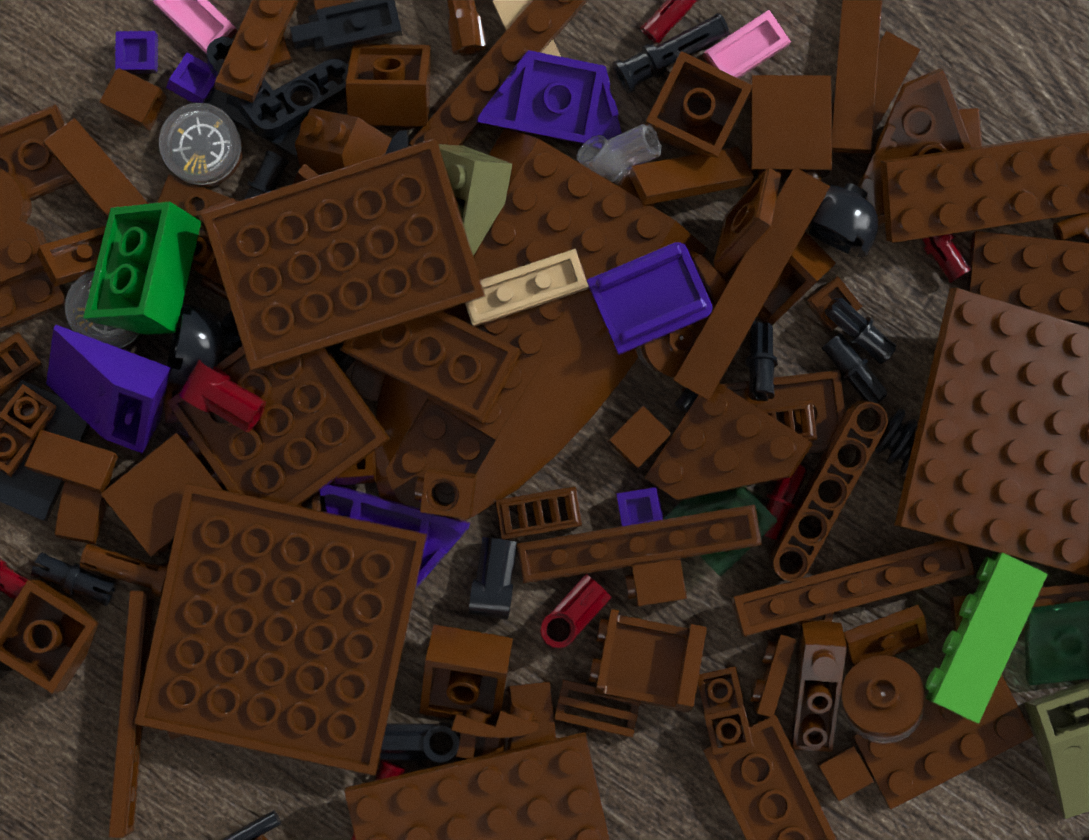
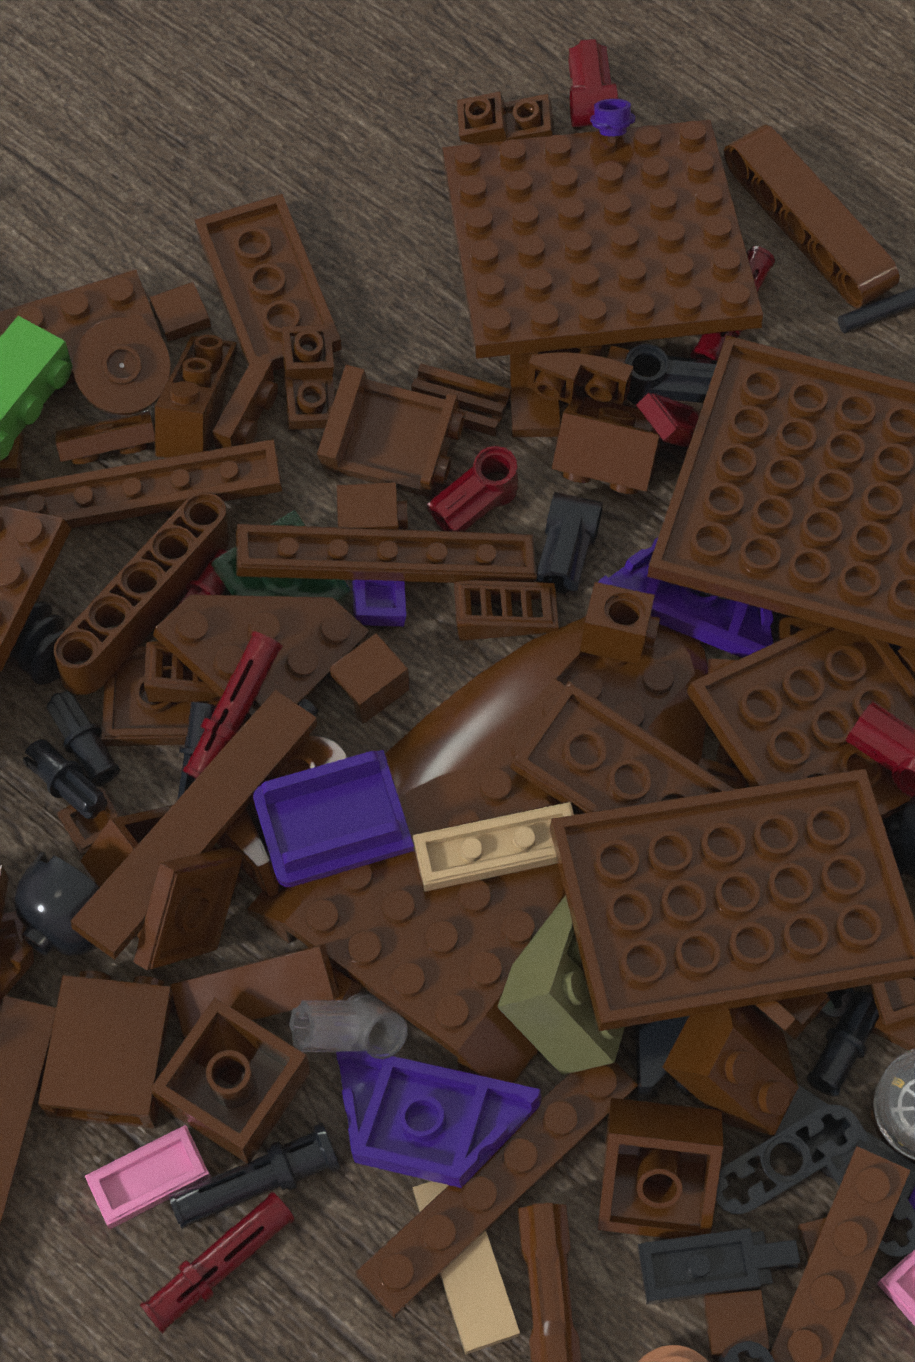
camera: 175 degrees left, 20 degrees down
(415, 687) = (670, 419): none -> dark red tile
(754, 345) = (235, 701): none -> dark red pin

